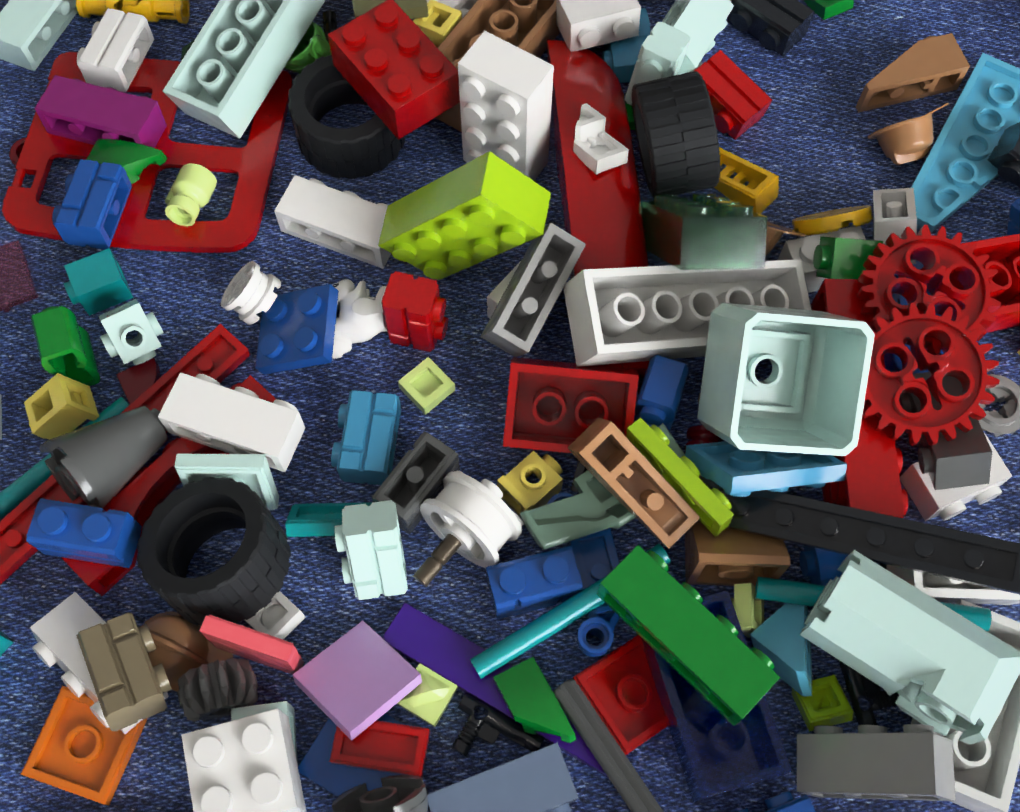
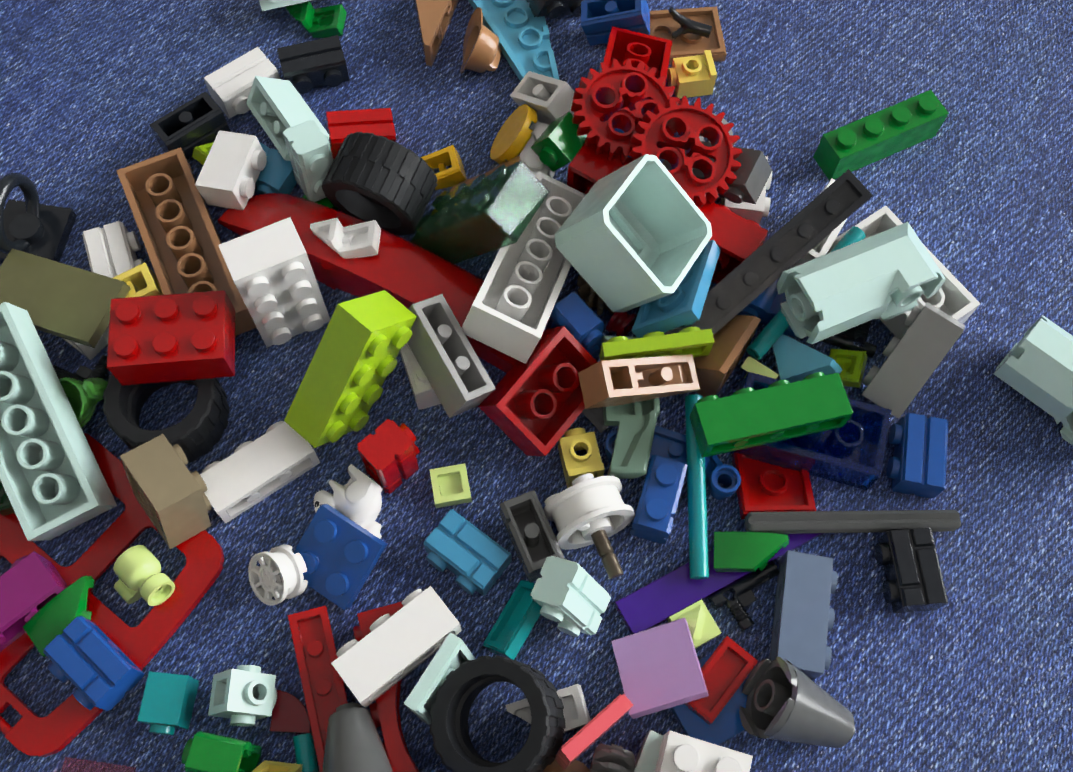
camera: 60 degrees left, 0 degrees up
(264, 158) = (168, 490): none -> dark tan brick

